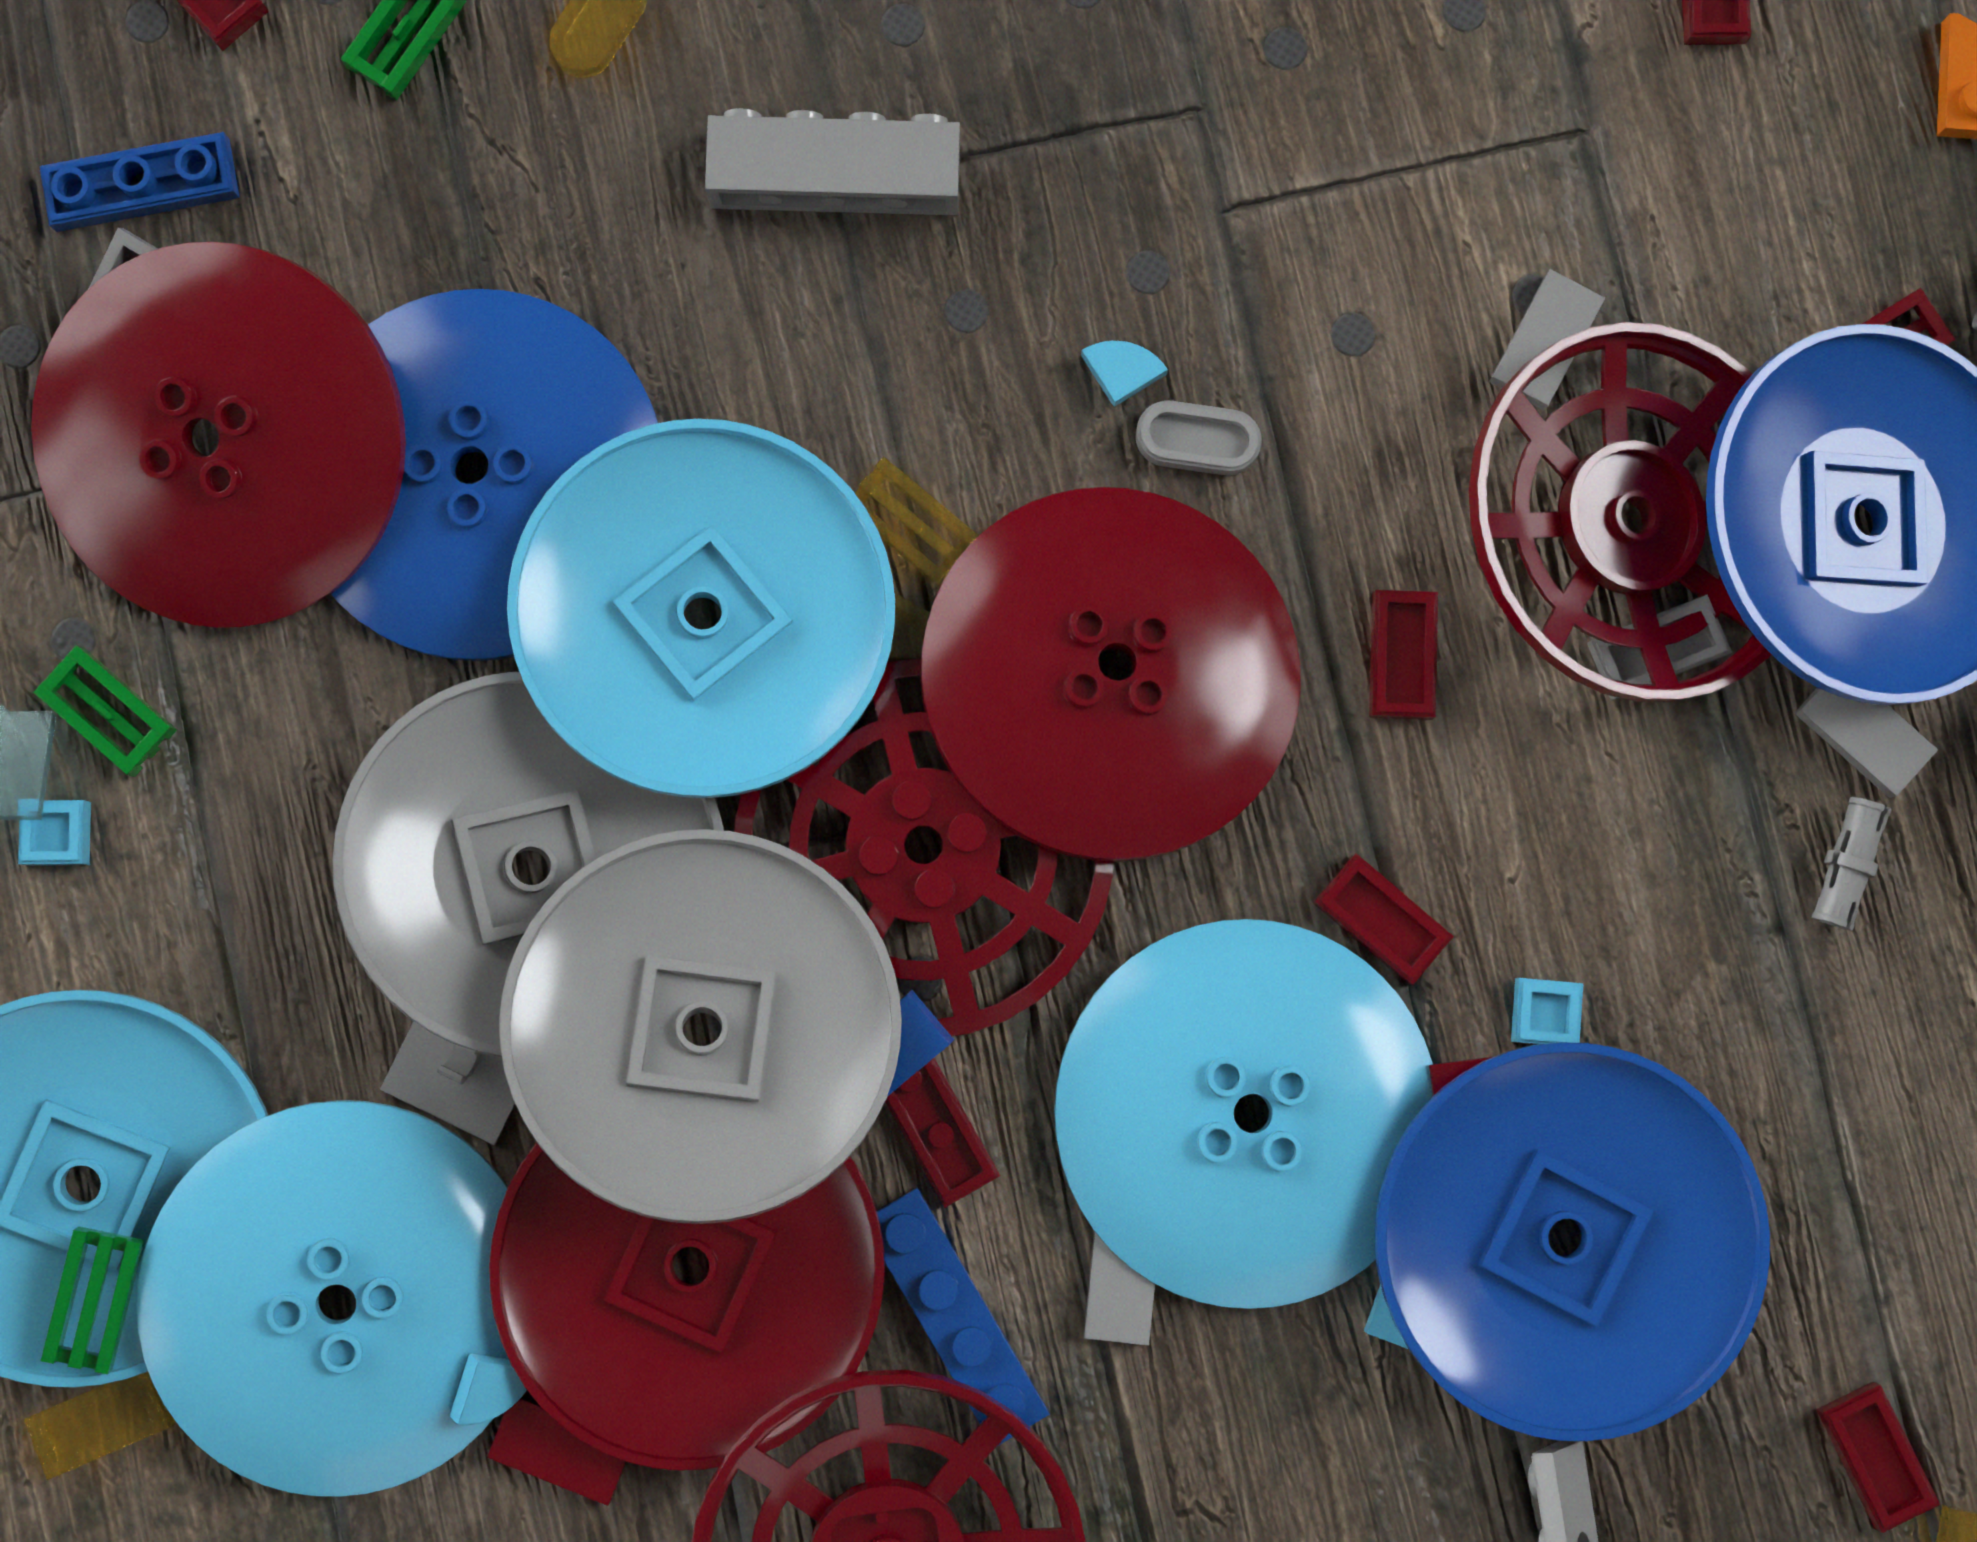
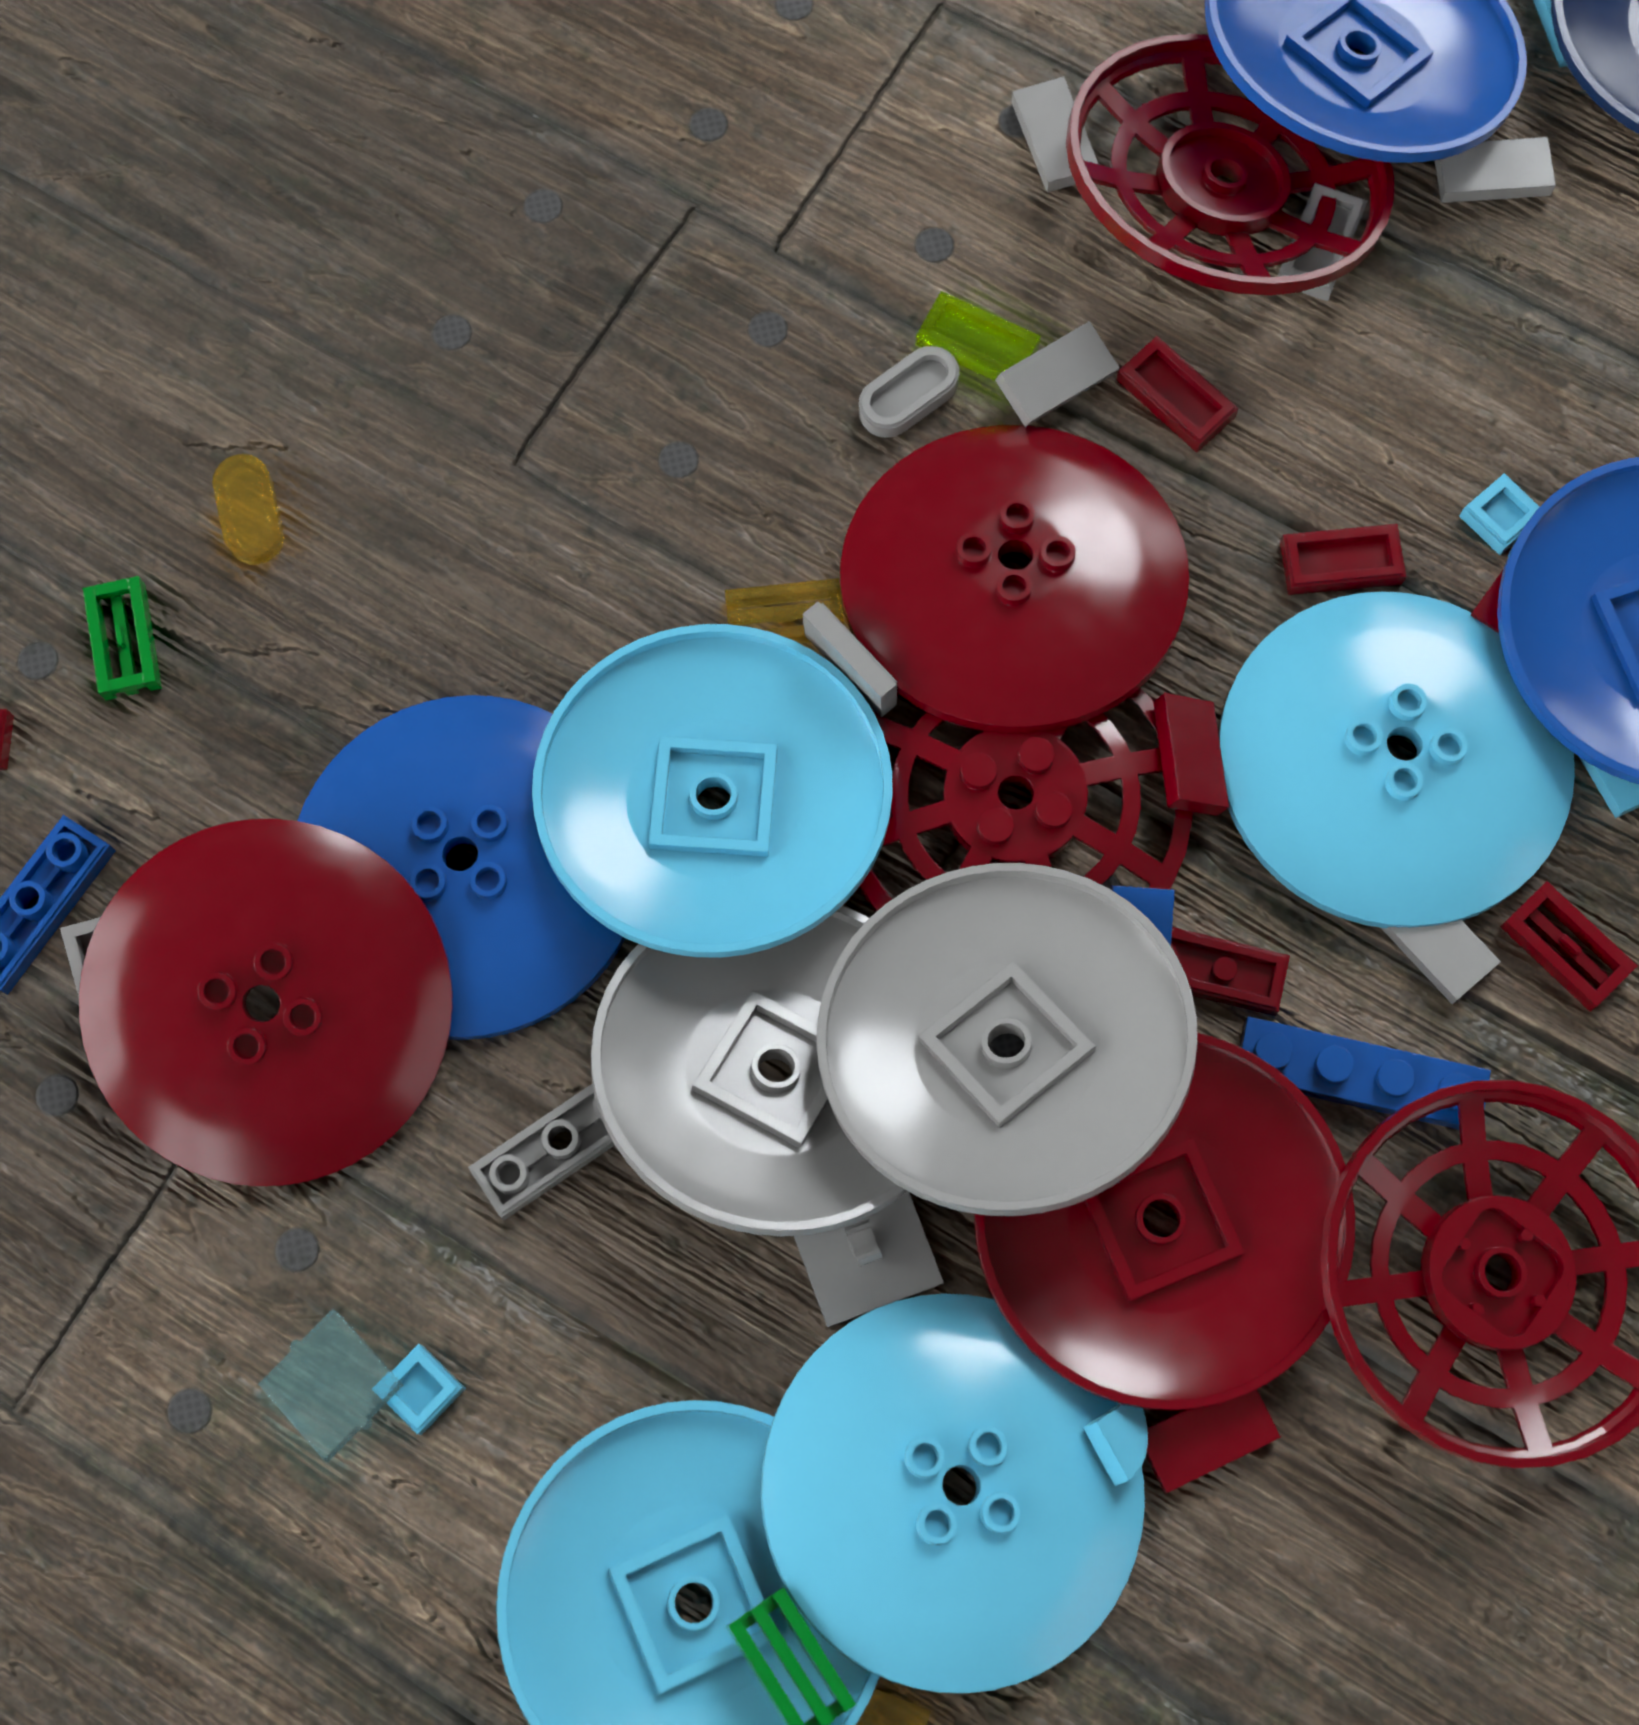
camera: 40 degrees left, 10 degrees down
(145, 745) = (423, 1266): green tile -> none
(295, 750) = (529, 1163): none -> light grey tile
(833, 163) = (501, 446): light grey brick -> none
(910, 612) = (850, 657): none -> light grey tile
(1090, 950) = (1190, 754): none -> dark red tile
(1122, 368) = (816, 396): medium azure tile -> none
(1211, 1444) = (1555, 964): none -> dark red tile
(1297, 450) = (976, 336): none -> clear neon green tile
(1323, 544) = (1057, 373): none -> light grey tile
(1851, 863) = (1575, 248): light grey pin -> none

